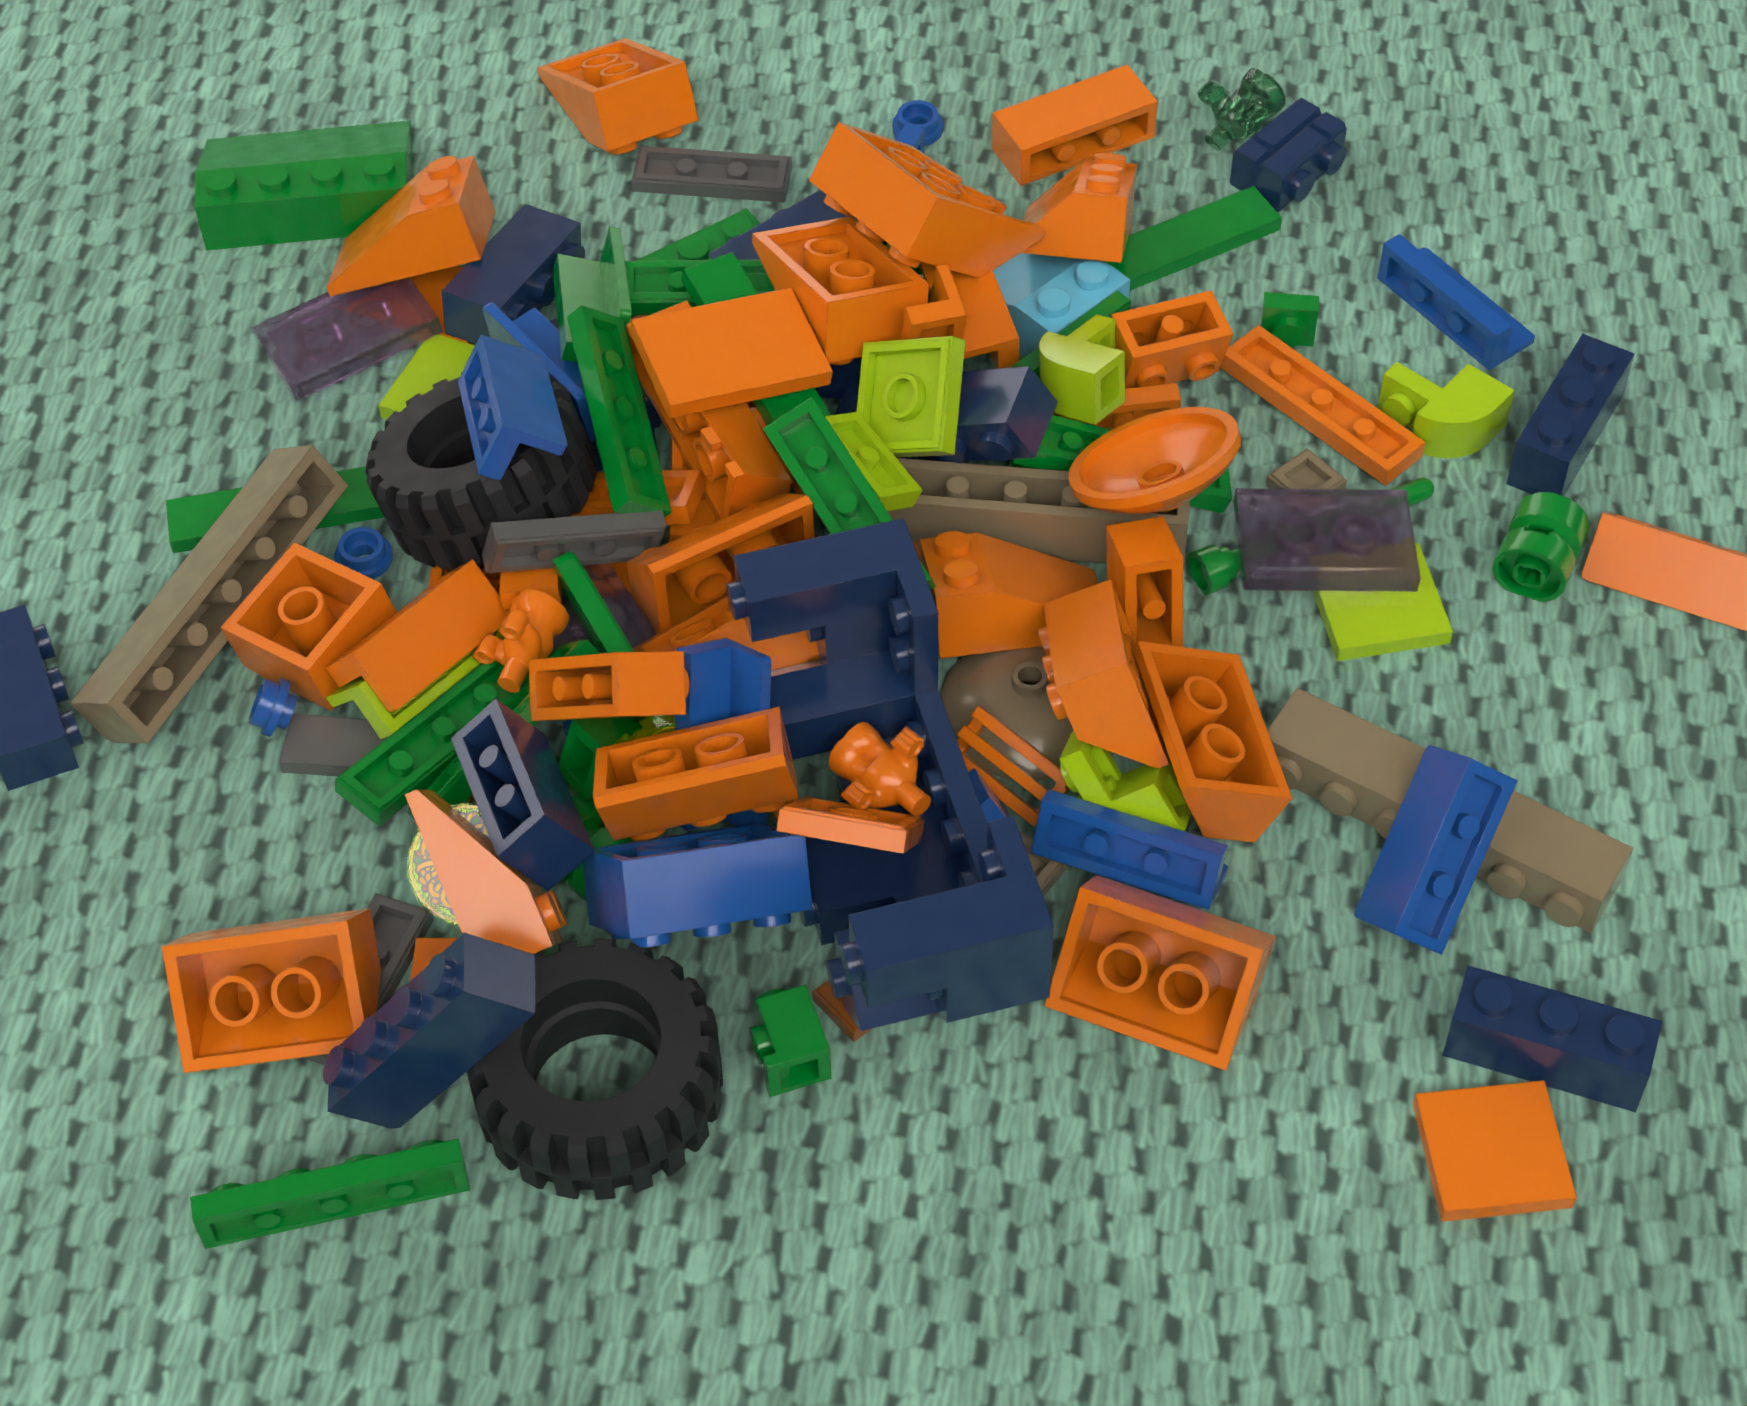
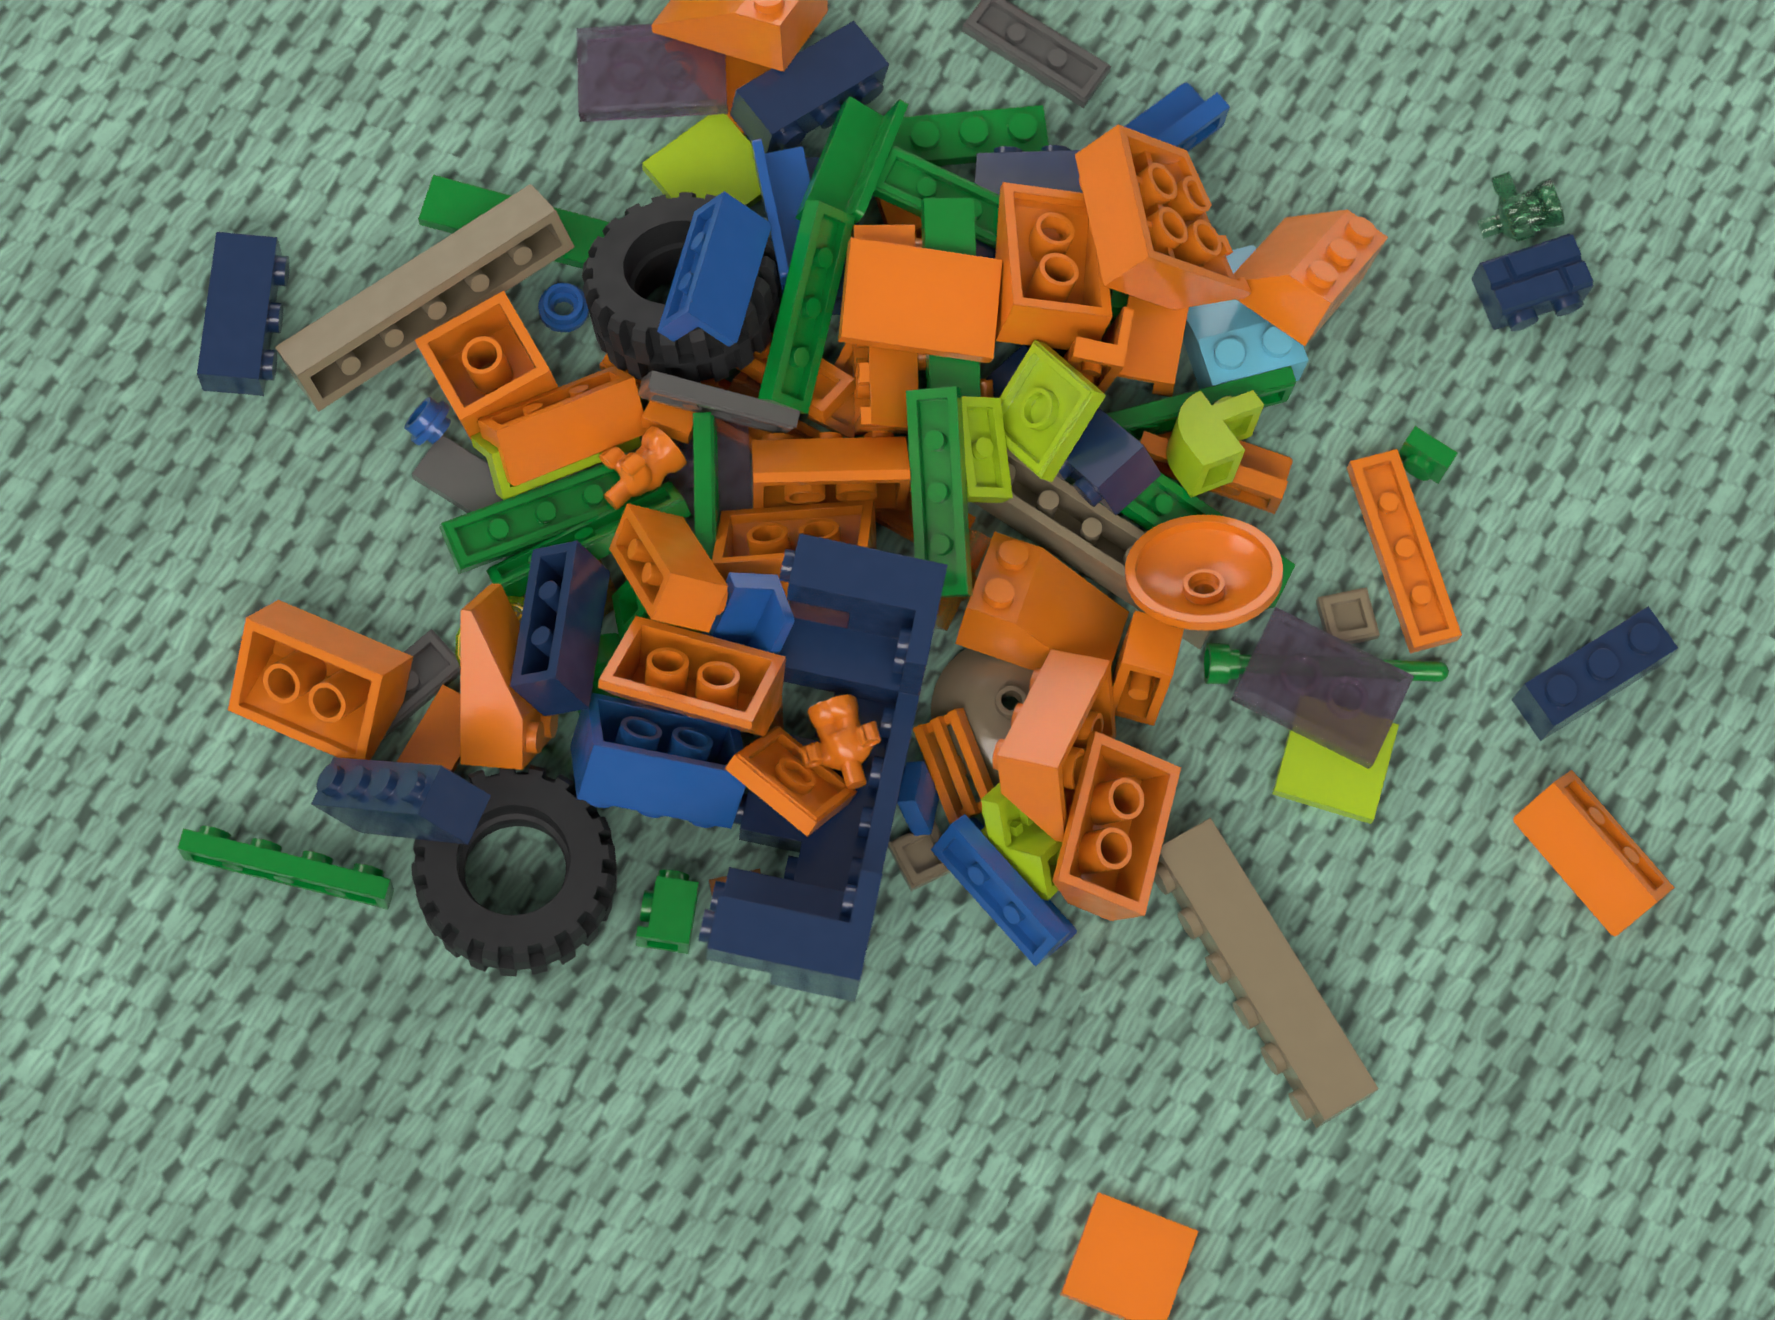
camera: 15 degrees right, 20 degrees up
(922, 115) = (1242, 72): blue plate -> none
(1073, 124) = (1368, 155): orange brick -> none
(1159, 971) = (971, 996): orange slope -> none
(1173, 340) = (1306, 434): orange brick -> none
(1197, 236) = (1405, 324): green tile -> none
(1435, 848) = (1226, 1012): blue panel -> none
(1450, 418) = (1500, 623): lime brick -> none
(1451, 303) = (1580, 504): blue panel -> none
(1541, 546) = (1495, 778): green wheel -> none
(1553, 1038) = (1221, 1204): dark blue brick -> none

